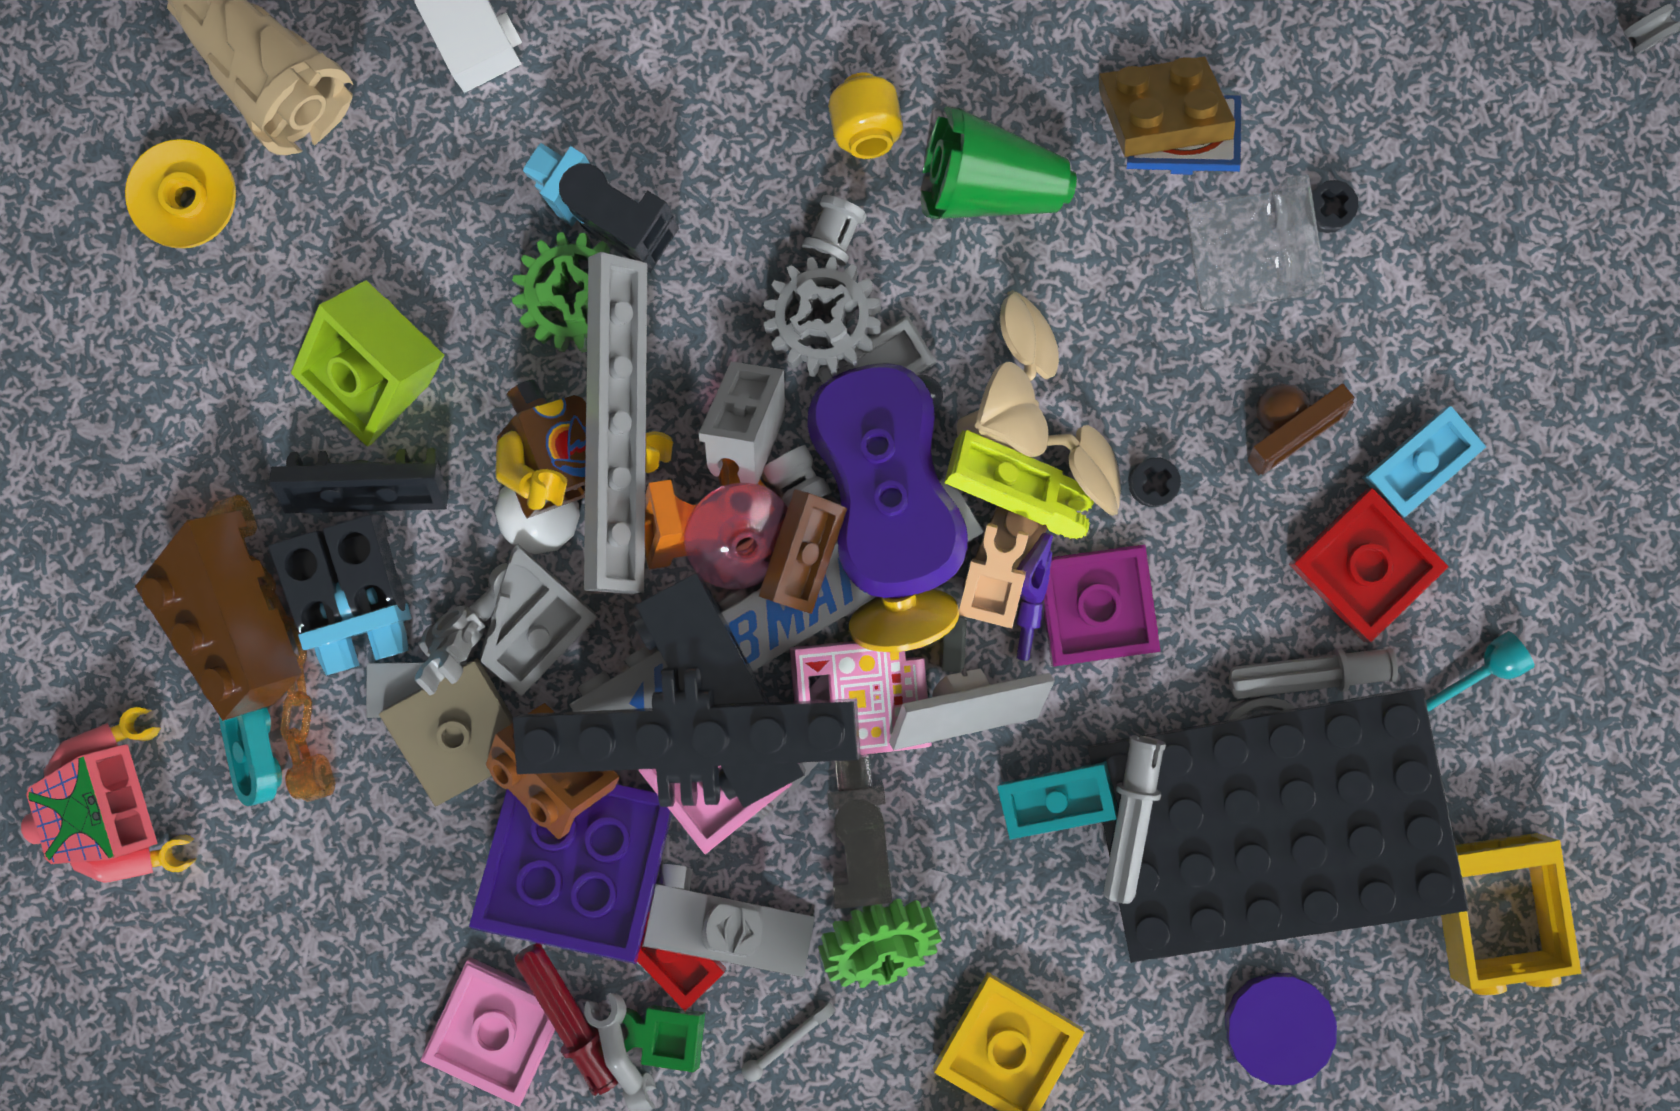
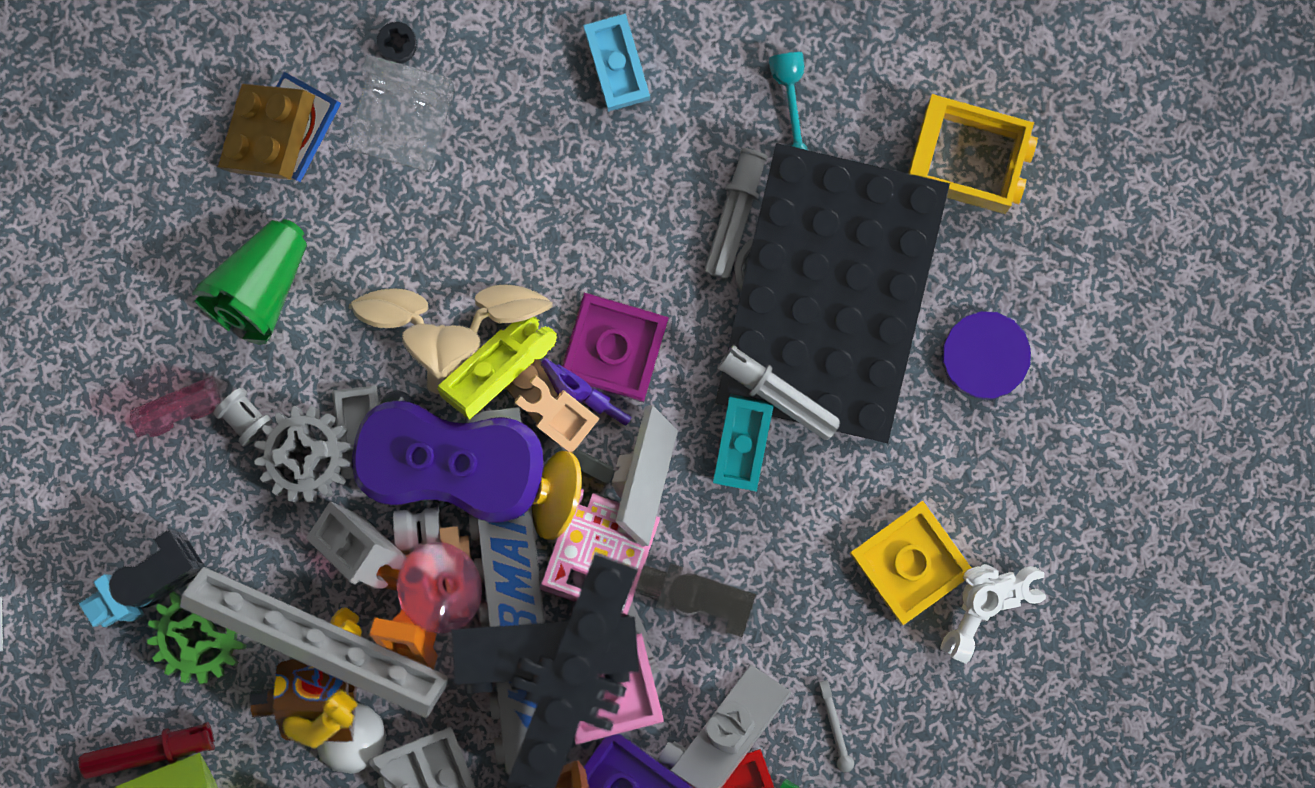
camera: 70 degrees left, 5 degrees down
(436, 314) = (147, 751): none -> dark red axle
(796, 139) = (160, 414): none -> clear pink plate
(803, 551) = (472, 545): reddish brown plate -> none
(865, 115) = (167, 354): yellow head -> none
(879, 943) = (787, 621): bright green gear -> none
(1138, 478) = (549, 254): black bush -> none
(1294, 422) = (544, 143): reddish brown tile -> none
(1368, 565) = (674, 137): red plate -> none

